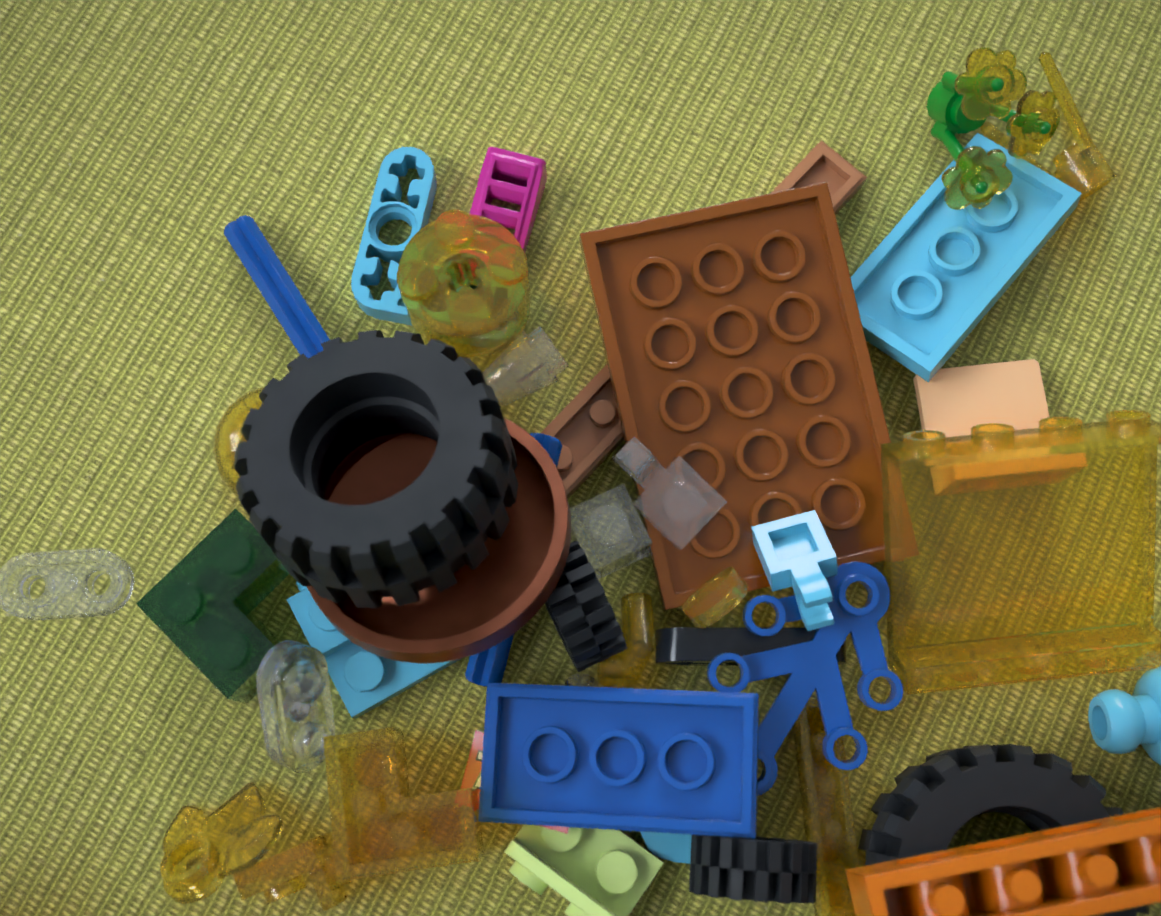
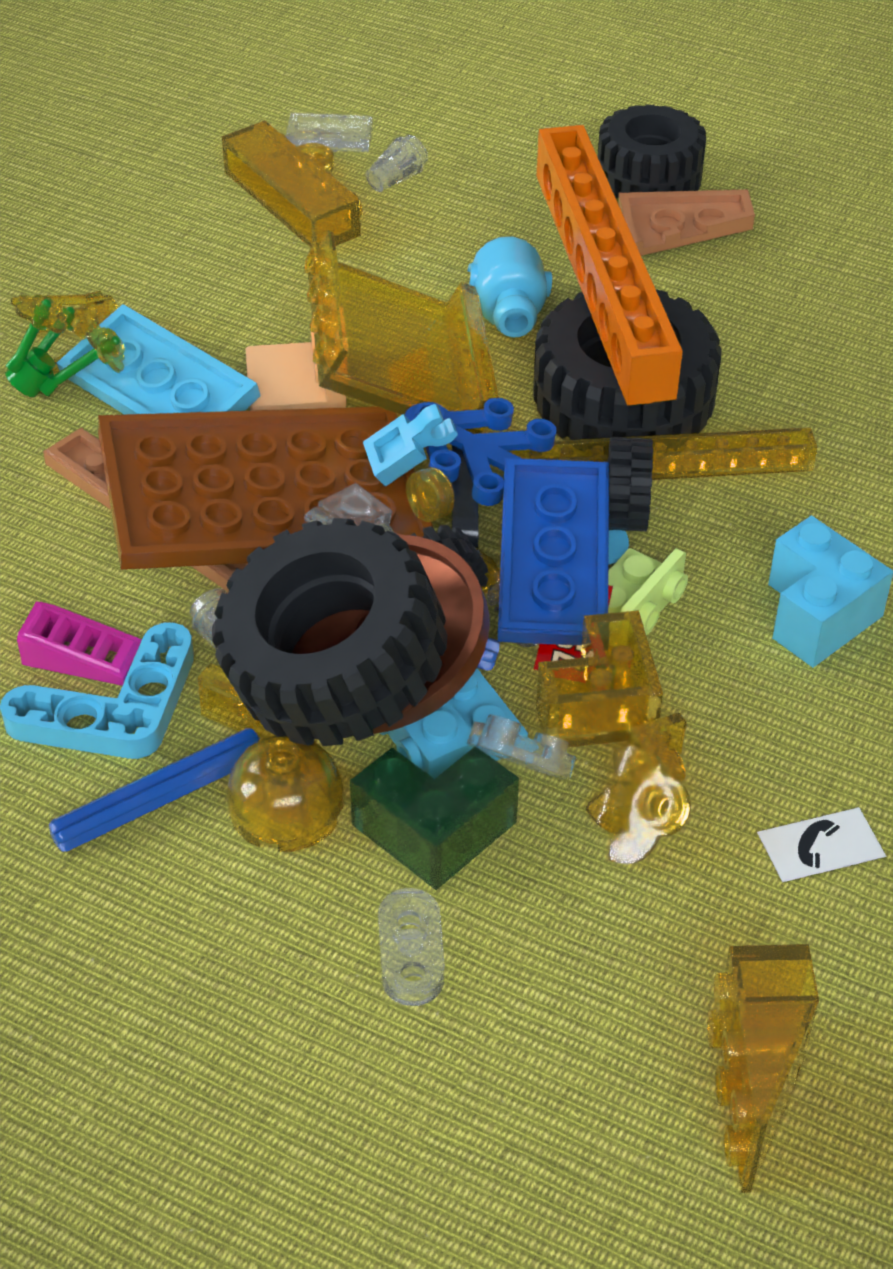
camera: 90 degrees left, 30 degrees down
(465, 252) = (156, 633): clear yellow brick -> none

